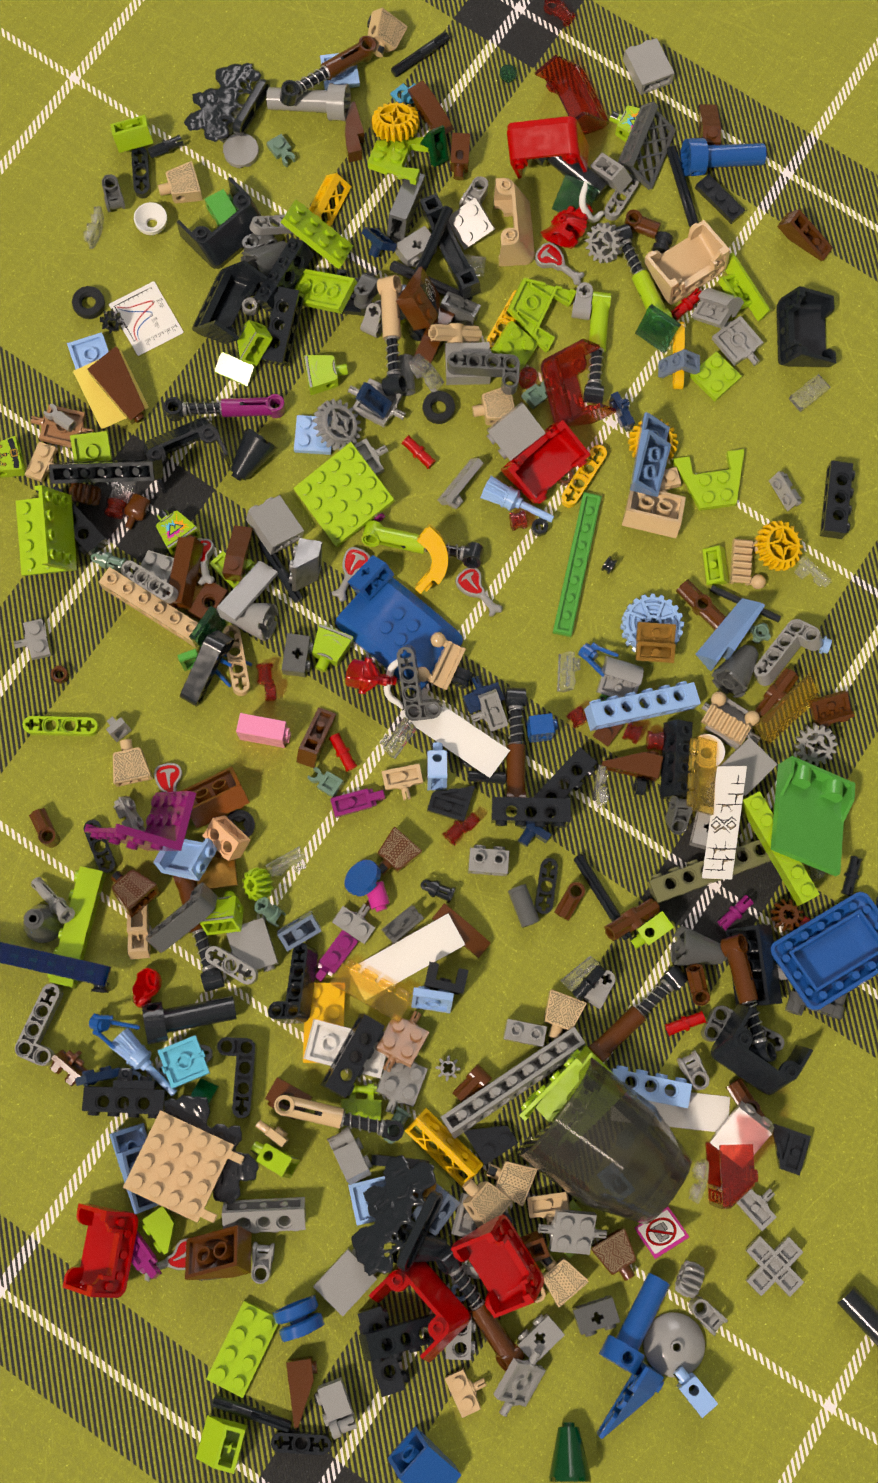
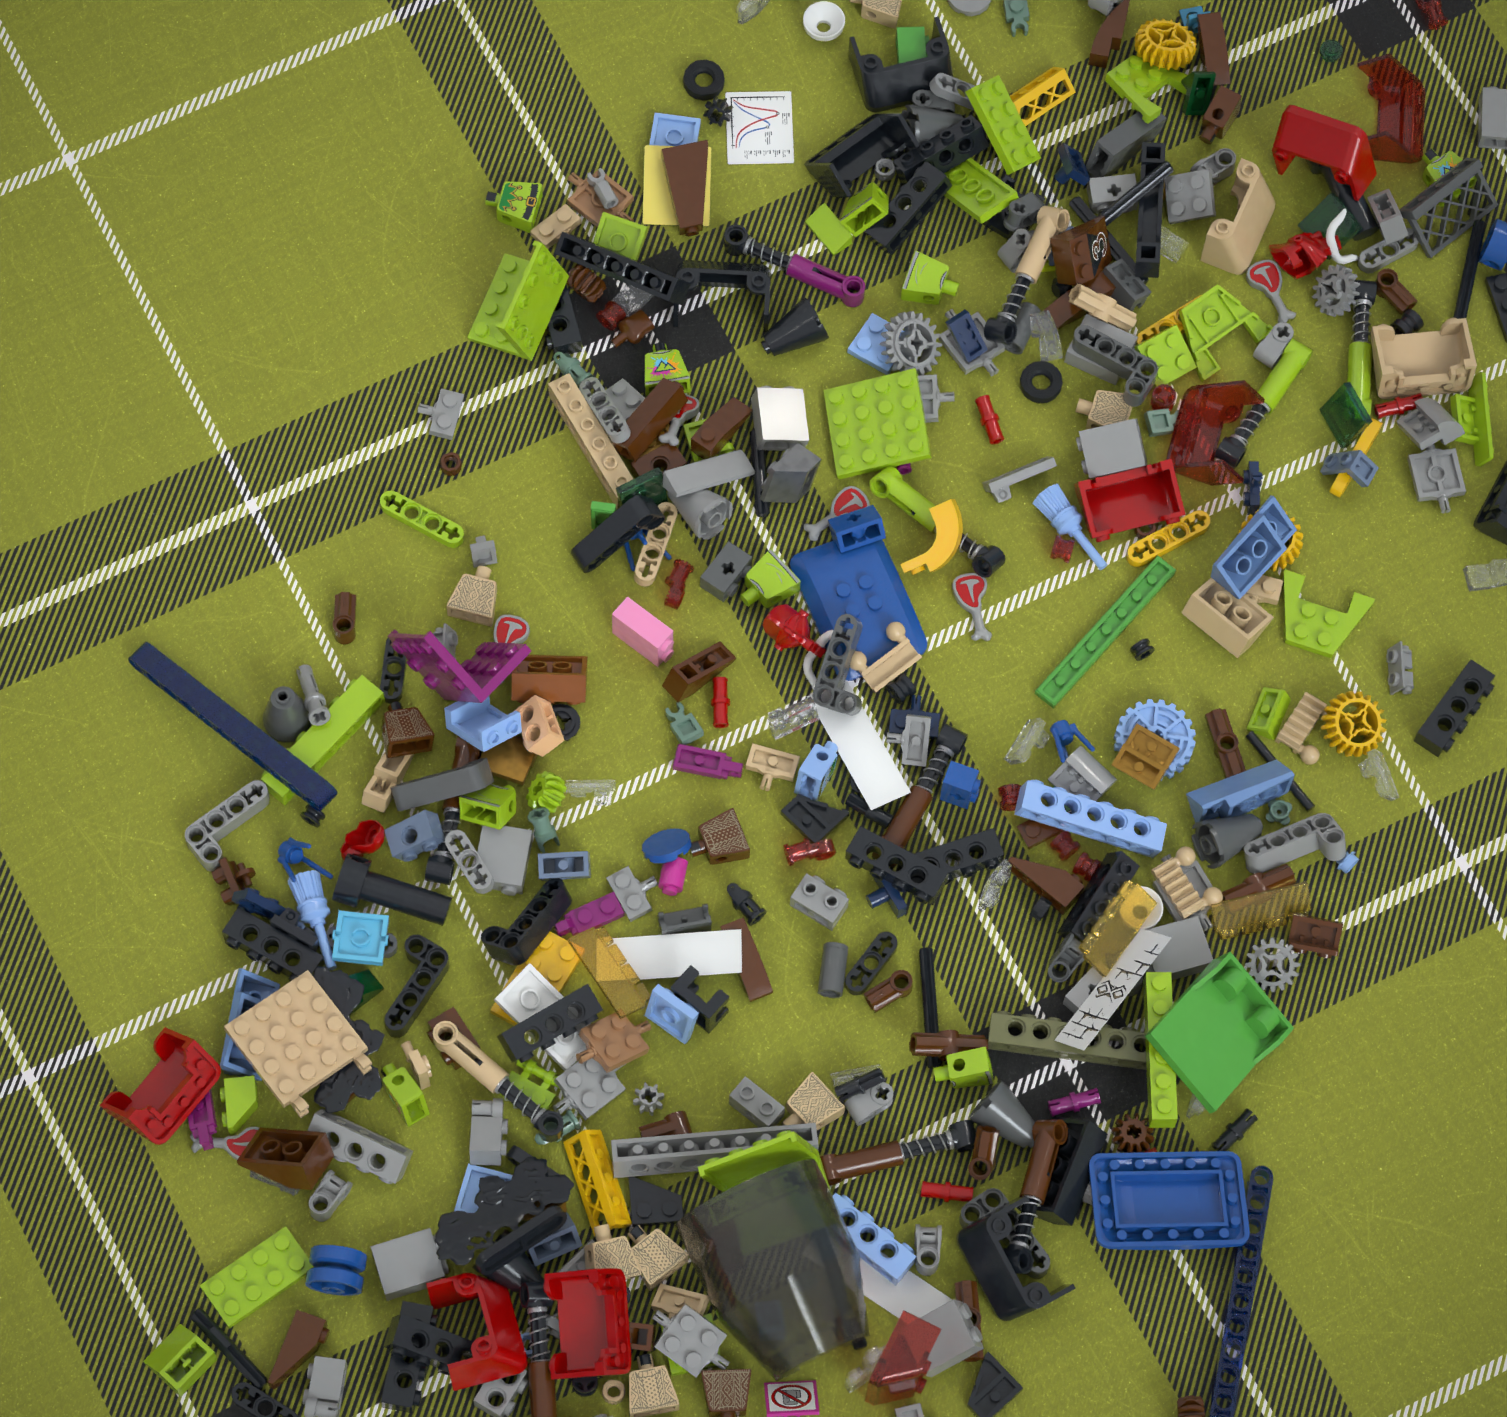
camera: 30 degrees right, 10 degrees down
(173, 971) = (402, 835): none -> sand blue brick
(539, 532) = (1083, 576): black axle -> none
(716, 376) = (1388, 503): lime plate -> none
(796, 1006) = (1128, 1266): dark grey beam -> none

